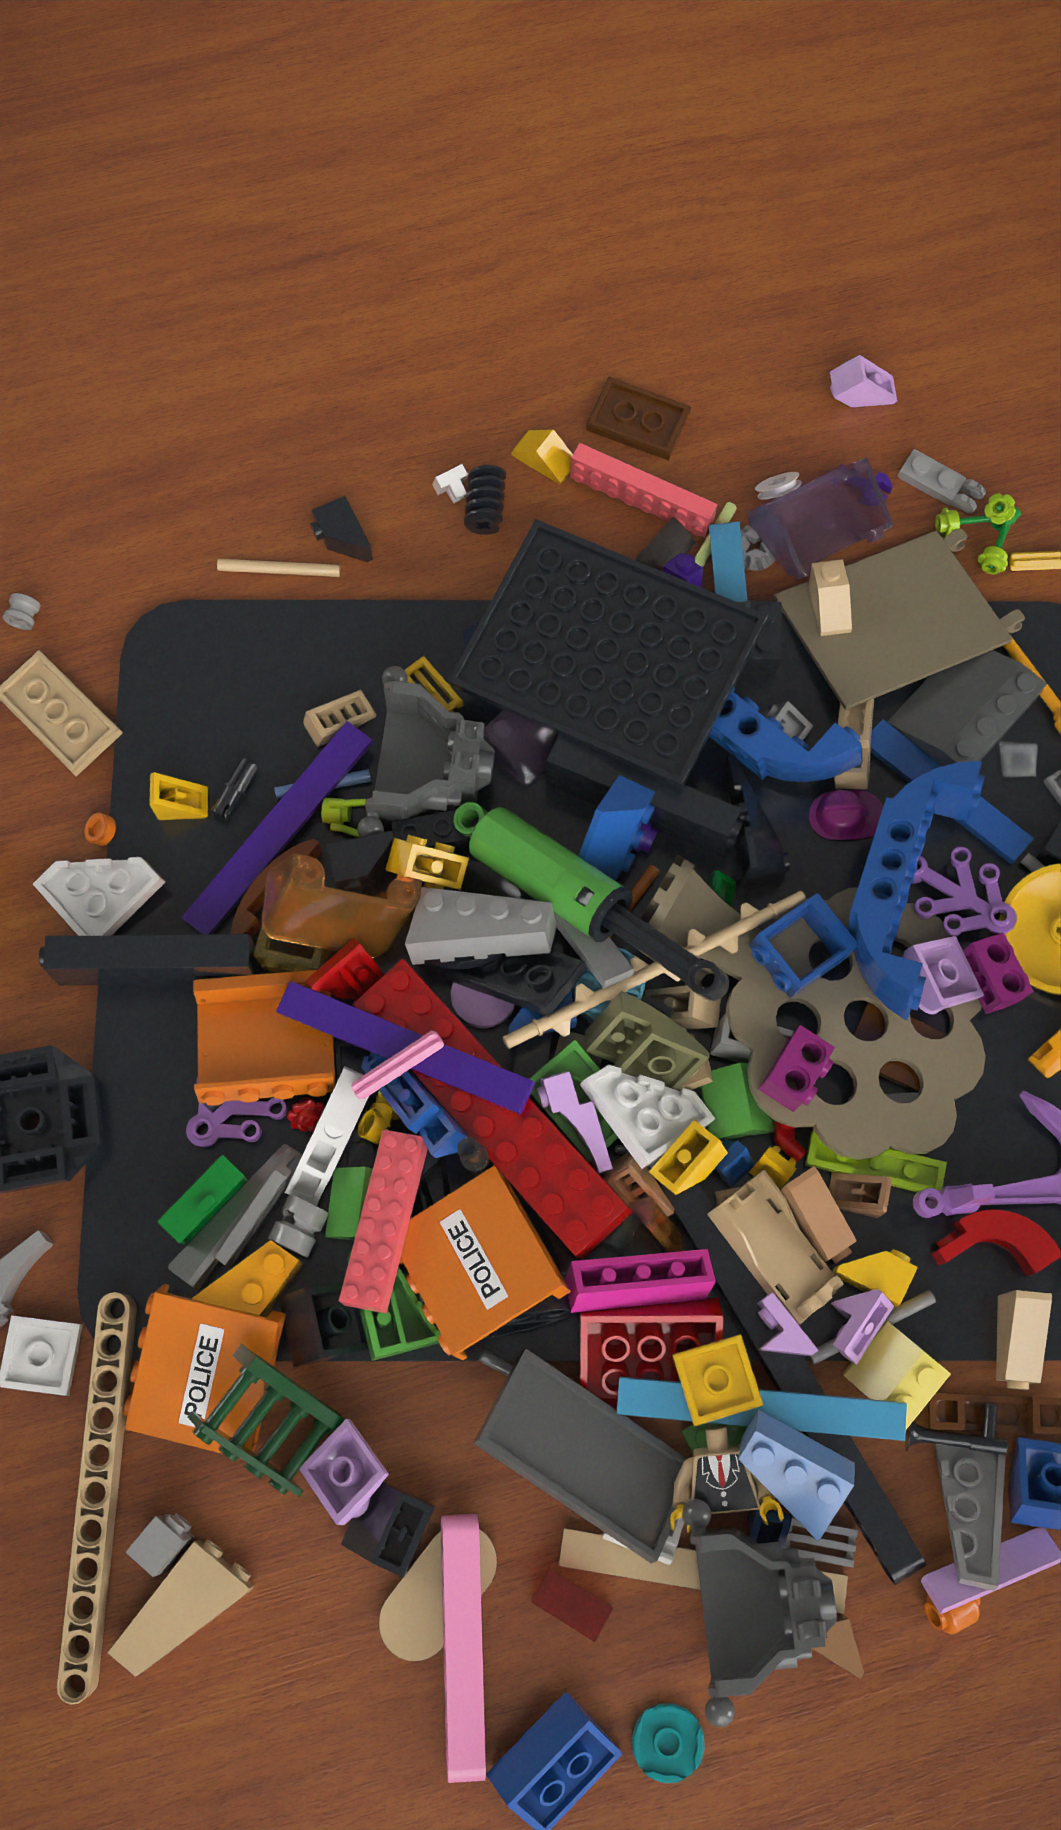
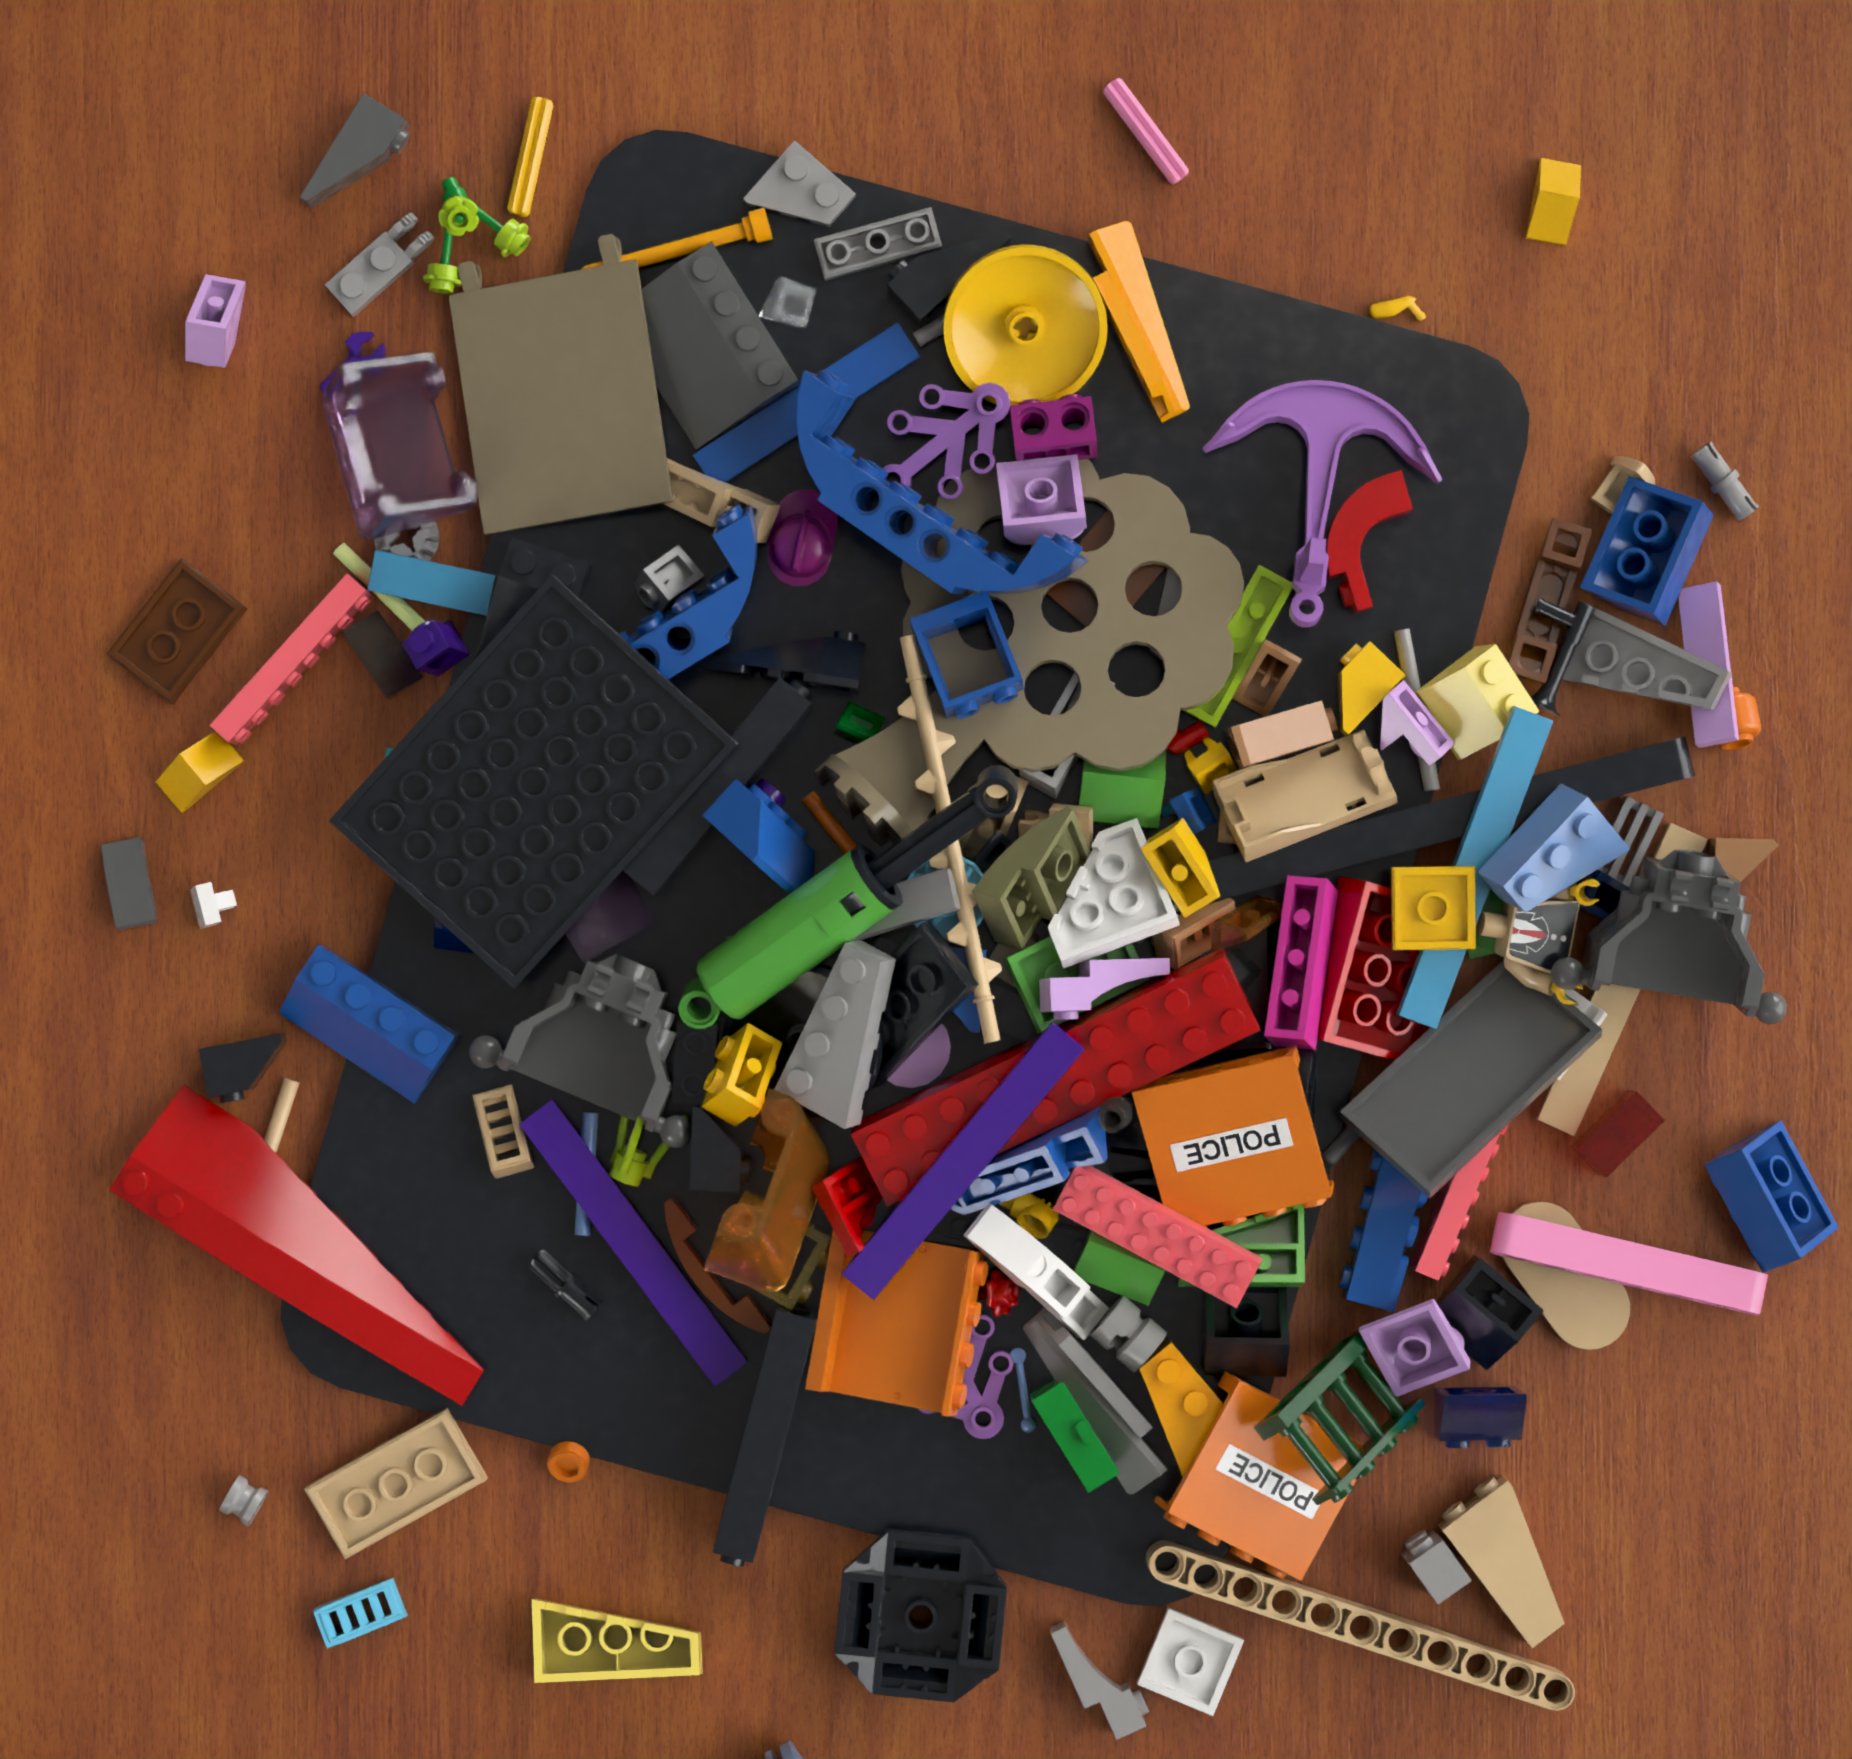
camera: 75 degrees left, 15 degrees up
(98, 893) = (656, 1481): white plate -> none
(177, 798) = (560, 1355): yellow slope -> none
(235, 558) = (247, 1208): none -> red wedge
(259, 1146) = (1028, 1424): none -> medium blue hinge
(300, 1547) = (1479, 1414): none -> clear blue slope
(396, 603) = (368, 1023): none -> blue slope
(397, 1064) = (986, 1174): bright pink axle -> none
(427, 1420) = (1382, 1238): none -> blue wedge
(448, 429) = (129, 883): none -> dark grey slope
(456, 701) = (463, 1021): yellow tile -> none
(470, 1473) = (1451, 1214): none -> coral piece
(485, 499) = (246, 868): black piece -> none
(667, 1742) = (1783, 1068): teal tile -> none
(778, 485) = (327, 497): white piece -> none
(790, 1337) = (1410, 814): lavender slope -> none
(793, 1065) = (1106, 717): magenta brick -> none
(830, 597) = (518, 469): tan slope -> none
(1017, 445) = (360, 147): none -> dark grey slope
(1022, 1337) = (1477, 549): tan slope -> none

